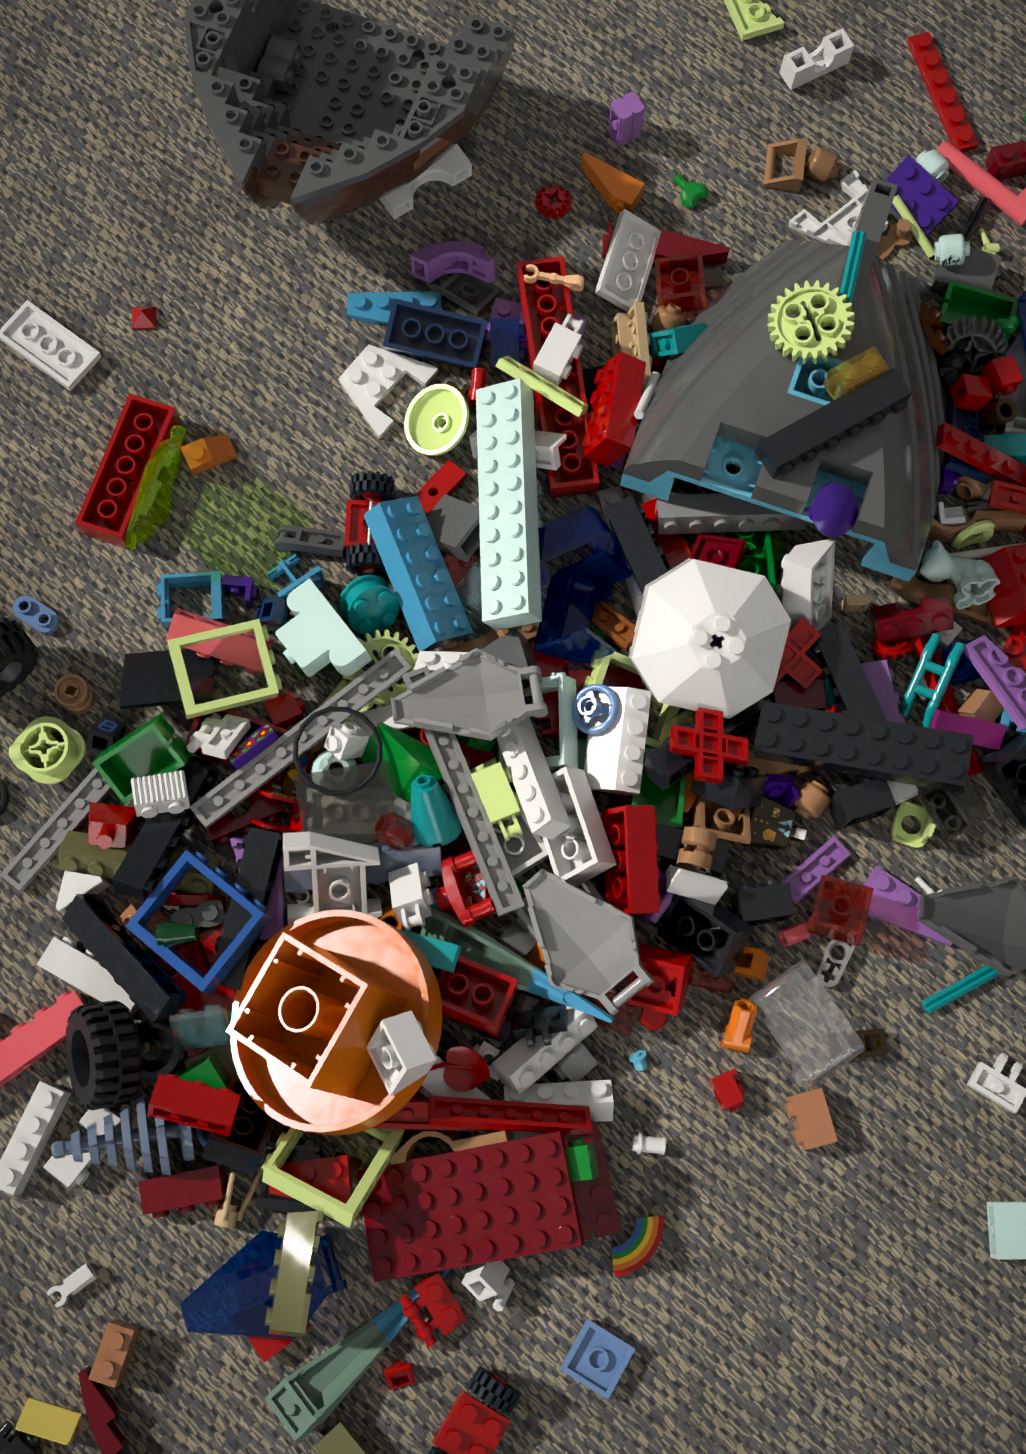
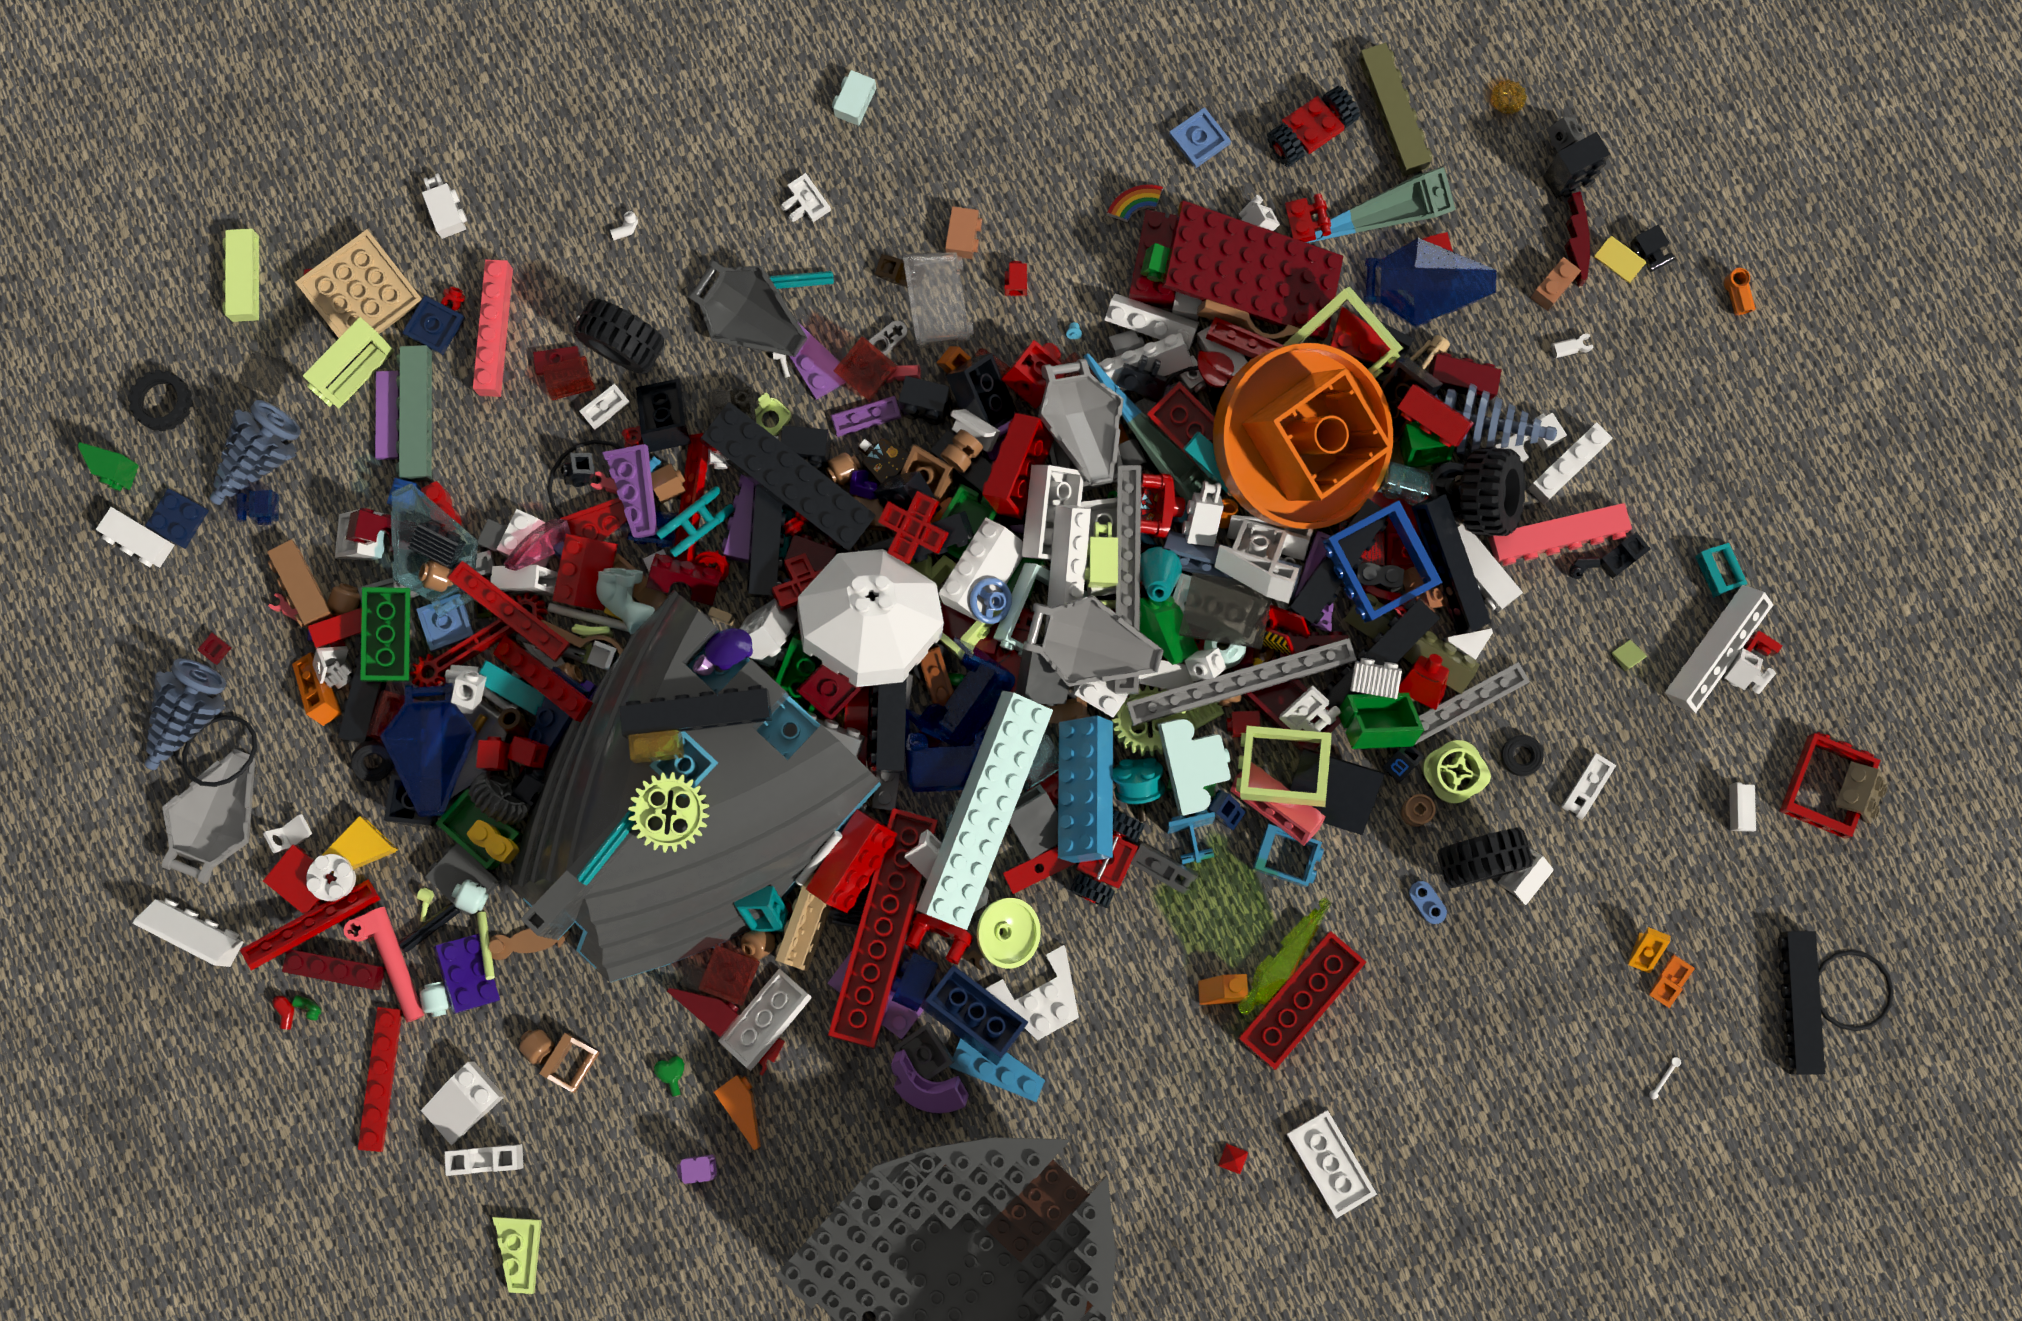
camera: 150 degrees left, 5 degrees up
(175, 933) = (1404, 553): dark green cone -> none
(238, 585) = (1242, 852): dark purple bracket -> none
(252, 746) = (1285, 690): dark purple tile -> none
(294, 1273) = (1402, 275): olive wedge -> none
(308, 721) = (1217, 686): black piece -> none
(394, 831) = (1196, 573): clear red head -> none
(399, 1375) = (1350, 186): red slope -> none
(400, 1051) = (1265, 373): white slope -> none
(508, 1115) = (1196, 317): red plate -> none
(542, 386) = (905, 911): yellowish green tile -> none
(557, 209) = (792, 1118): red gear -> none
(559, 350) = (874, 938): white brick -> none
(573, 282) = (833, 1002): light nougat piece -> none
(648, 1144) = (1095, 267): white pin -> none
(739, 1029) = (985, 319): orange piece -> none
(840, 225) = (539, 972): white wing -> none
(852, 482) = (703, 666): none -> lavender hinge
(859, 102) = (462, 1102): none -> white slope
(932, 327) = (528, 832): reddish brown slope -> none
(958, 297) = (490, 838): none -> yellow brick
(985, 732) = (689, 466): magenta tile -> none
(1008, 325) = (462, 798): green arm -> none

